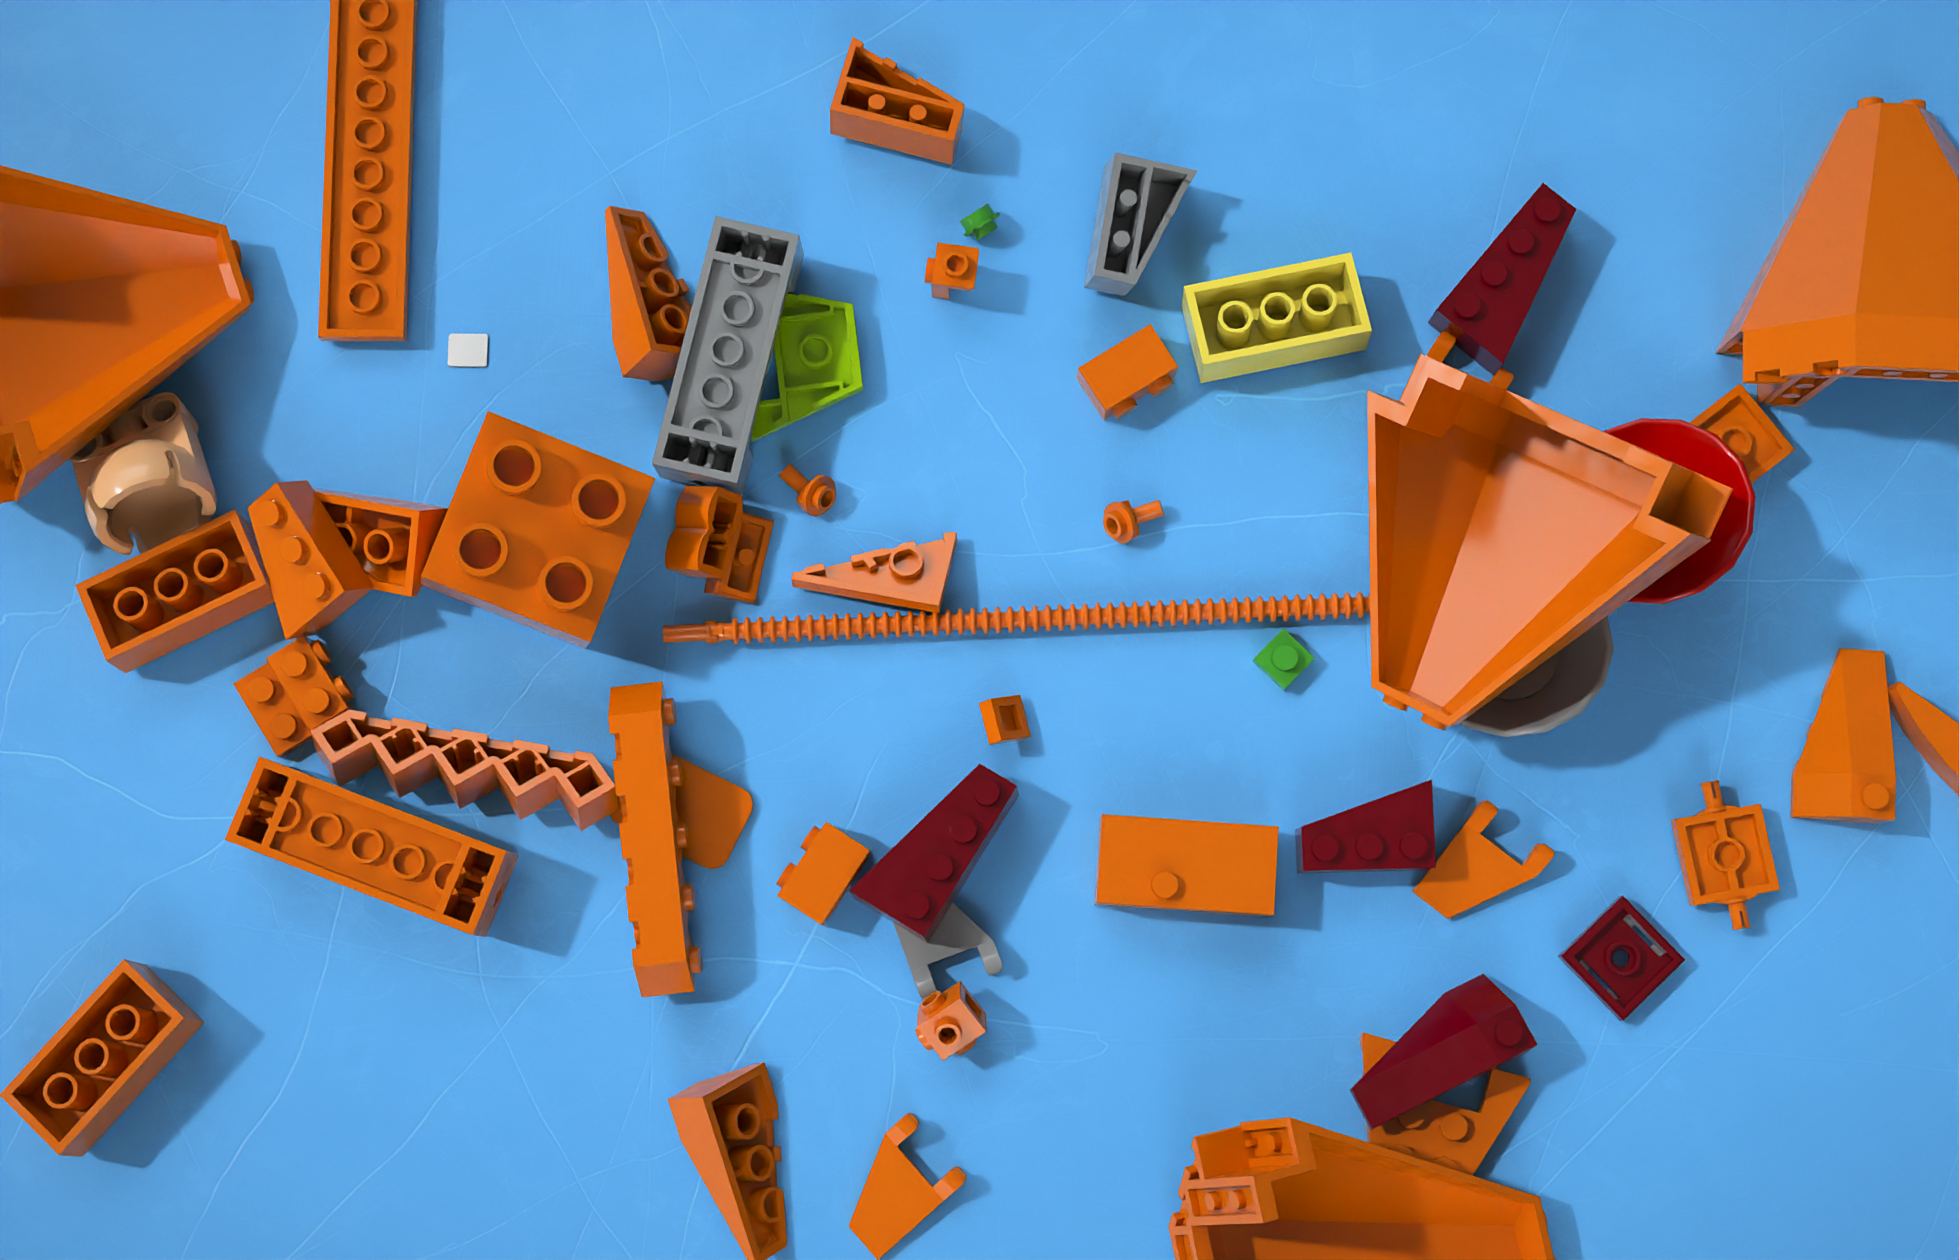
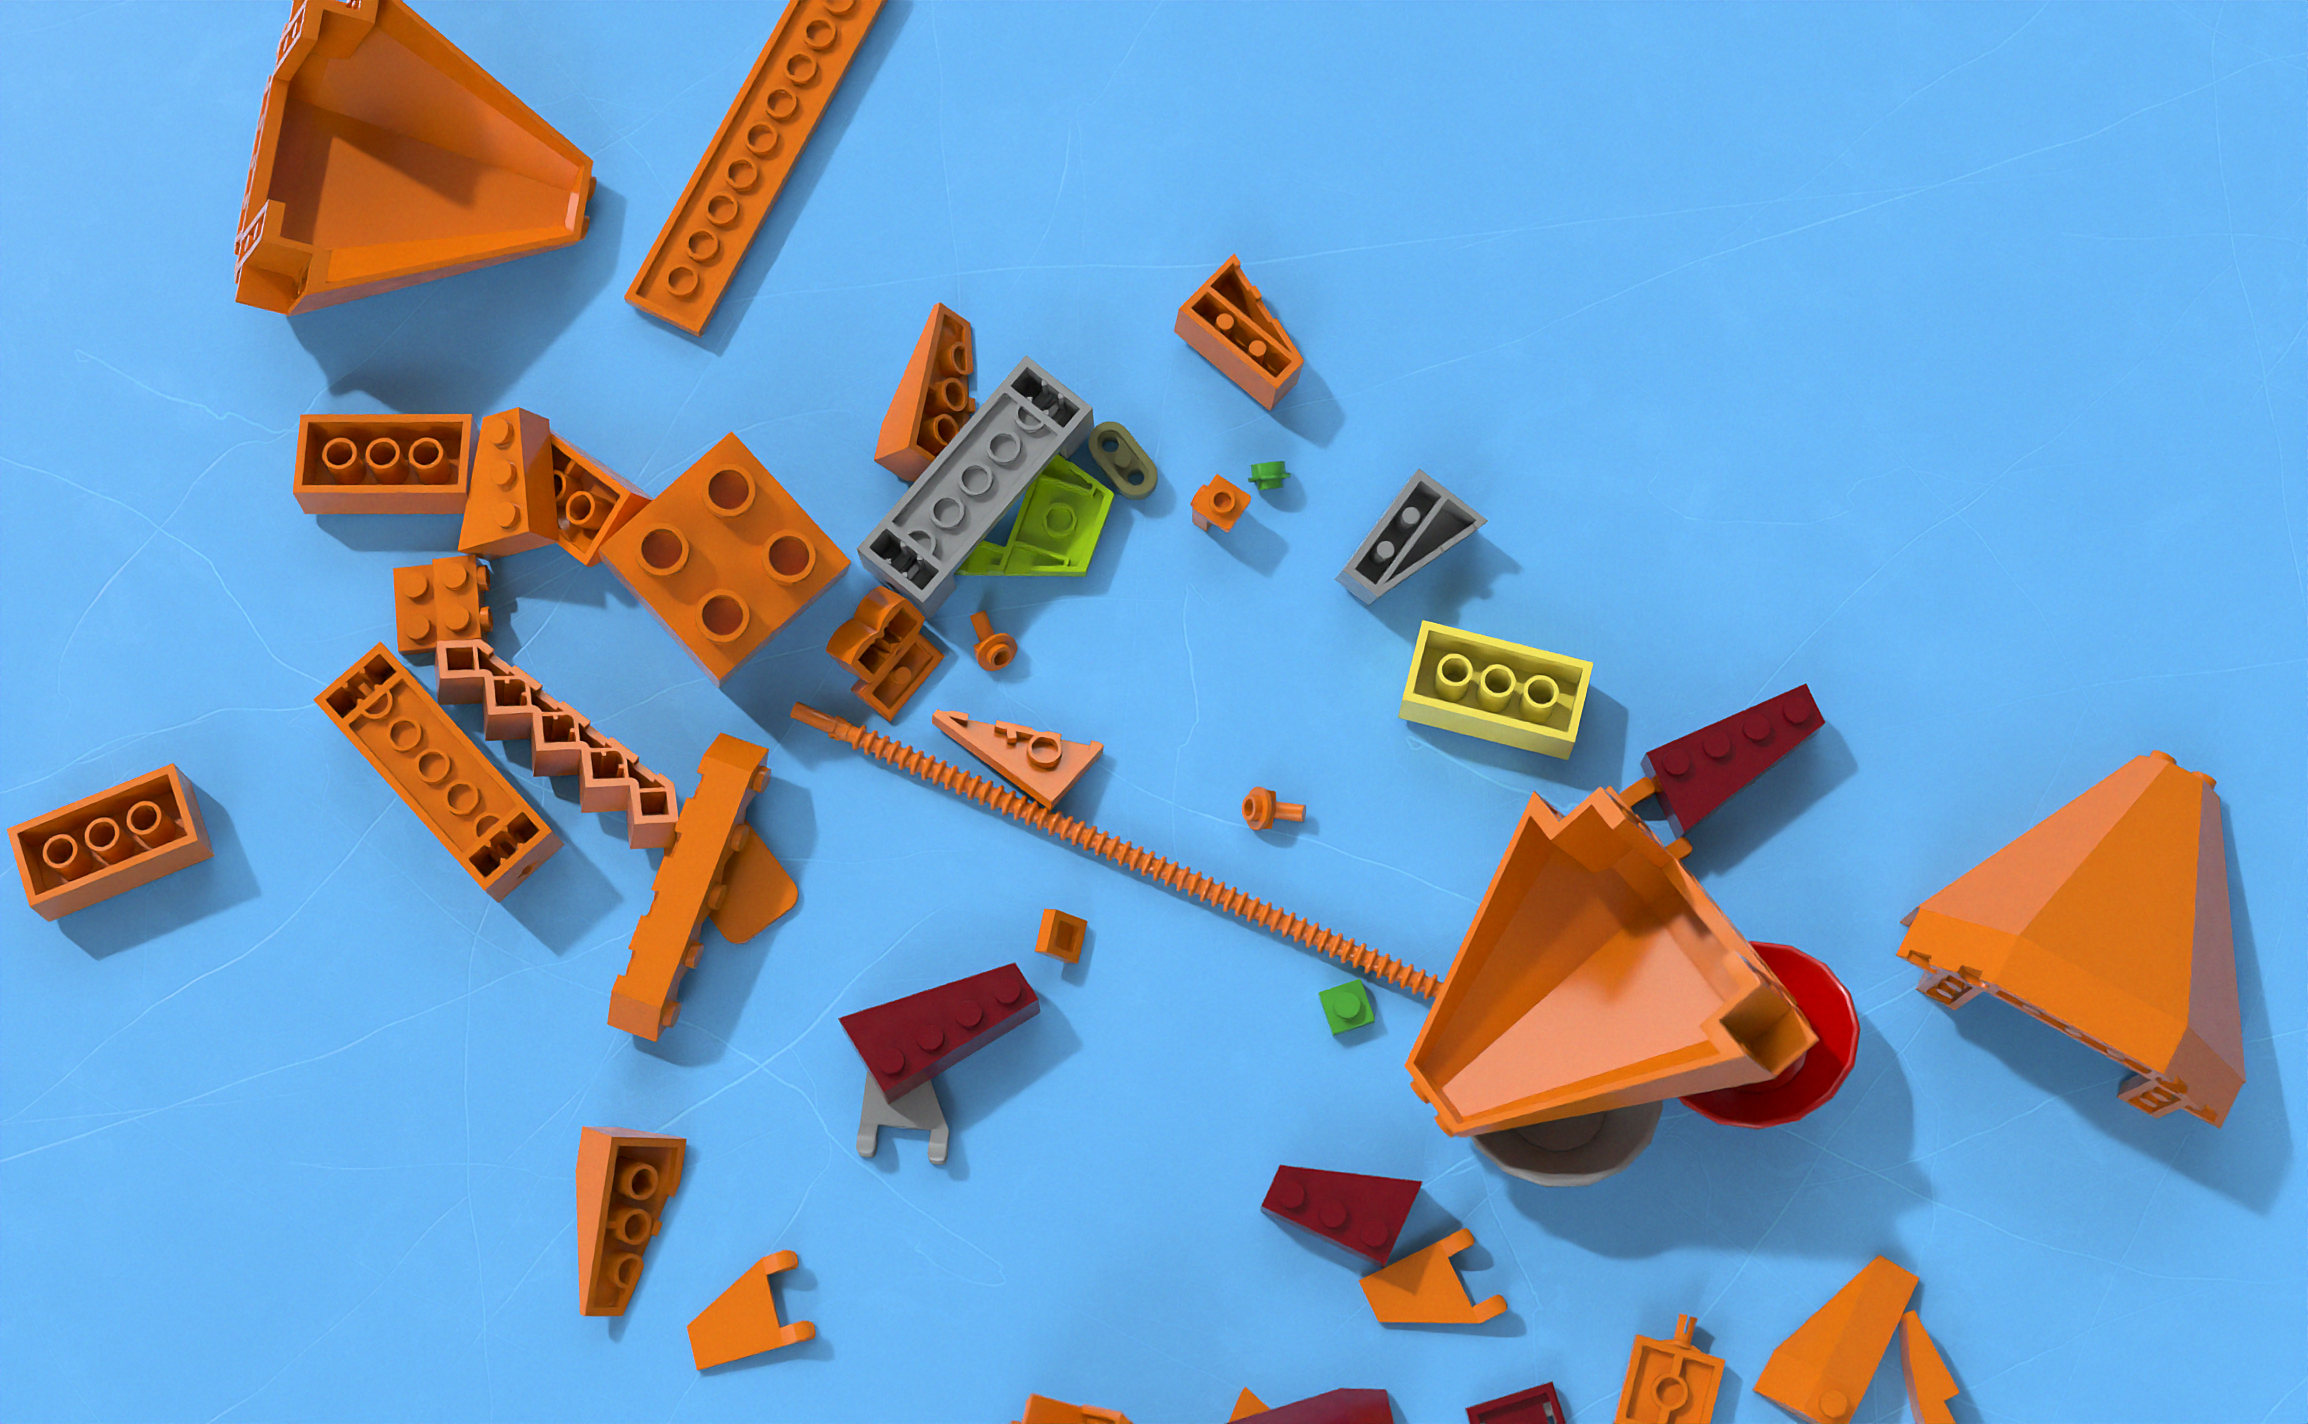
camera: 30 degrees right, 5 degrees down
(146, 476) = (410, 348): light nougat piece -> none
(467, 350) = (750, 372): white sticker -> none
(823, 872) = (825, 993): orange brick -> none
(846, 270) = (1124, 462): none -> olive plate
(950, 1021) = (871, 1184): orange brick -> none
(1128, 373) = (1334, 676): orange brick -> none
(1186, 865) = (1158, 1150): orange brick -> none
(1746, 431) = (1884, 1009): orange plate -> none

